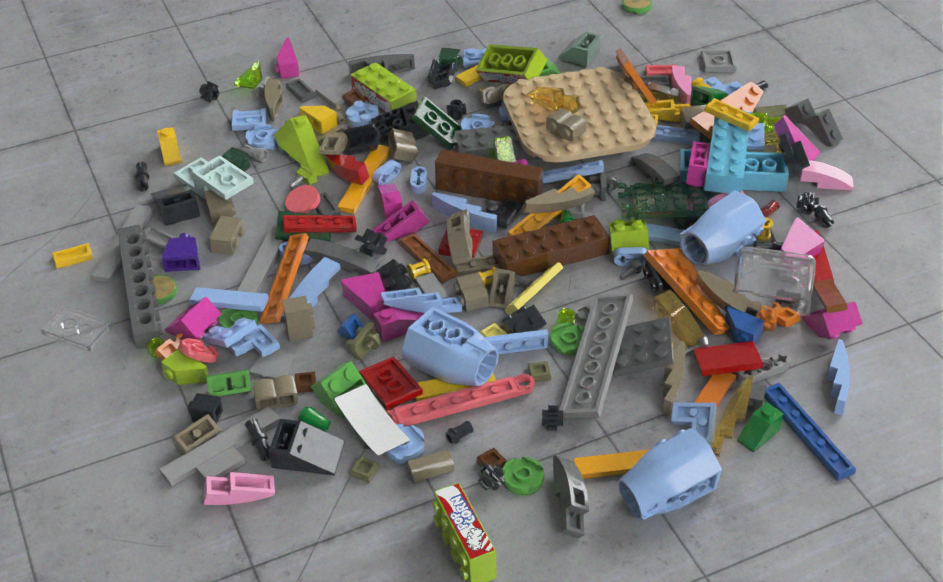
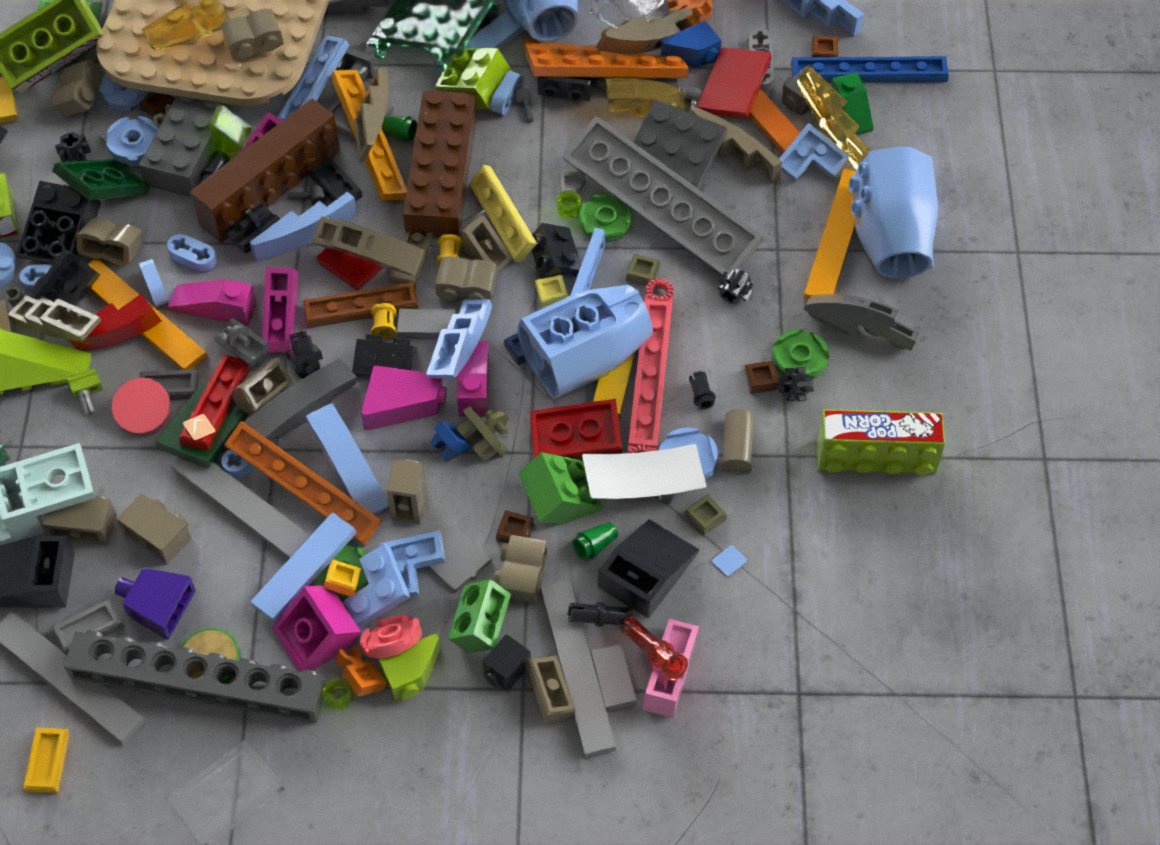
camera: 65 degrees left, 15 degrees up
(226, 314) = (342, 578): none -> yellow tile
(252, 461) = (659, 652): none -> clear red pin
(293, 220) = (199, 427): none -> light nougat sticker
(337, 495) = (729, 560): none -> light blue sticker
(340, 235) = (261, 386): none -> dark tan brick
(364, 217) = (243, 343): none -> dark grey hips
(448, 188) = (250, 226): none -> black hips
(806, 398) = (824, 46): none -> dark orange tile

